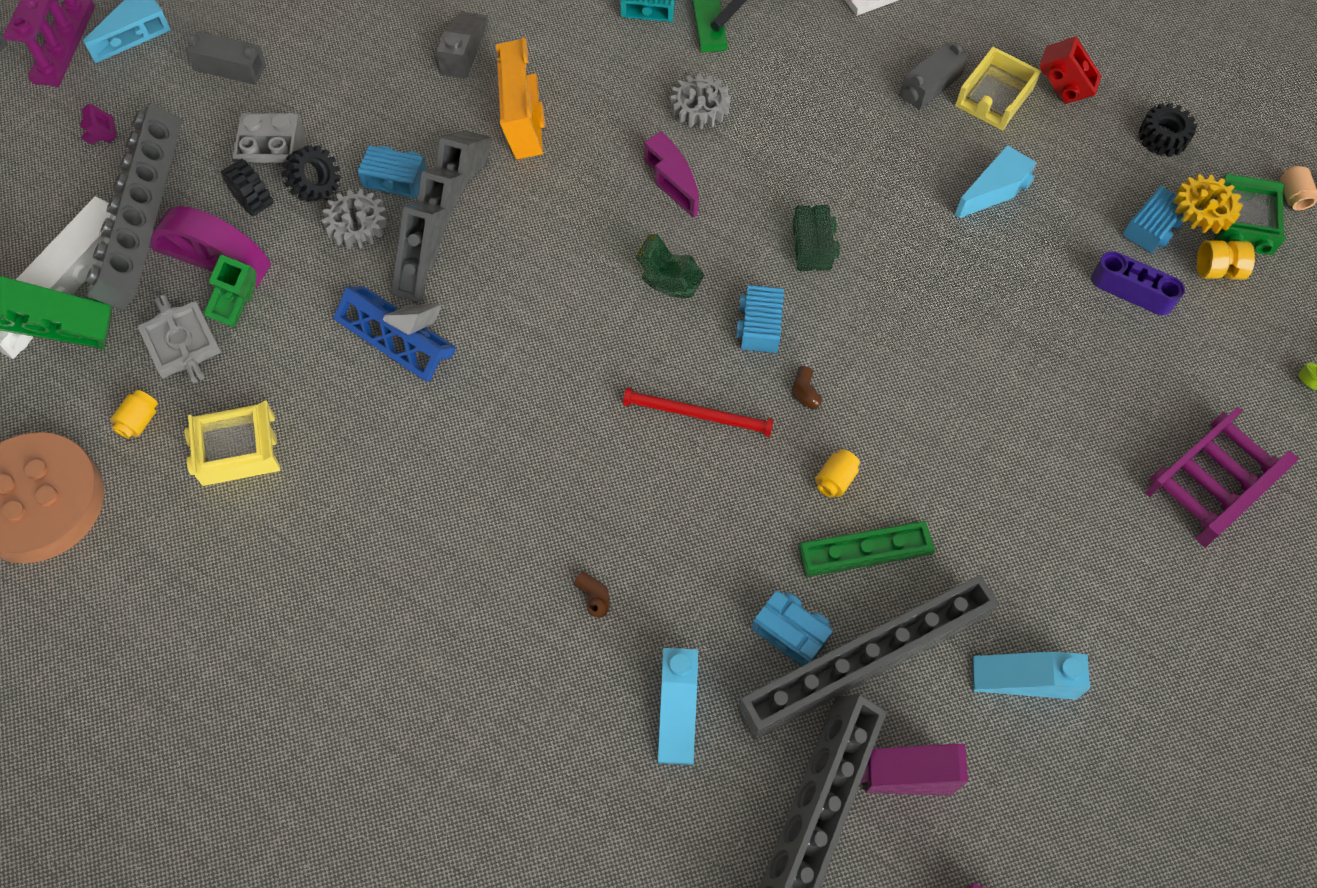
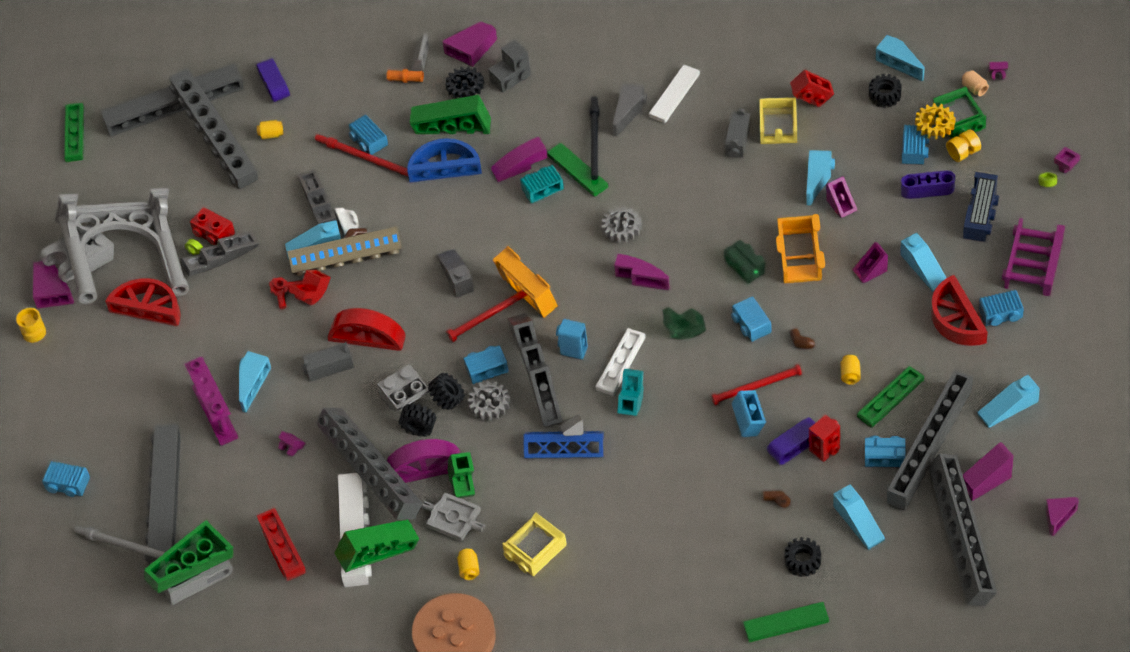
camera: 25 degrees left, 10 degrees down
(299, 47) = (367, 329): none -> red window
(392, 113) = (453, 334): none -> red bar
(451, 797) = (786, 622): none -> green tile
(513, 202) = (572, 338): none -> dark azure brick
(526, 324) = (632, 392): none -> teal brick
(553, 690) = (798, 566): none -> black tyre
(555, 271) = (619, 361): none -> white tile
(649, 446) = (748, 413): none -> dark azure brick
(683, 526) = (791, 442): none -> dark purple beam
(721, 552) = (824, 438): none -> red brick
(910, 229) = (800, 225): none -> light orange piece
(979, 344) = (872, 263): none -> magenta slope
(1004, 229) = (839, 197): none -> magenta slope
(1053, 385) = (922, 261): none -> medium azure slope
(1066, 483) = (977, 334): none -> red window
(1118, 521) = (1001, 308): none -> dark azure brick
(1191, 358) = (981, 207): none -> wedge
(1217, 98) = (898, 56): none -> medium azure slope

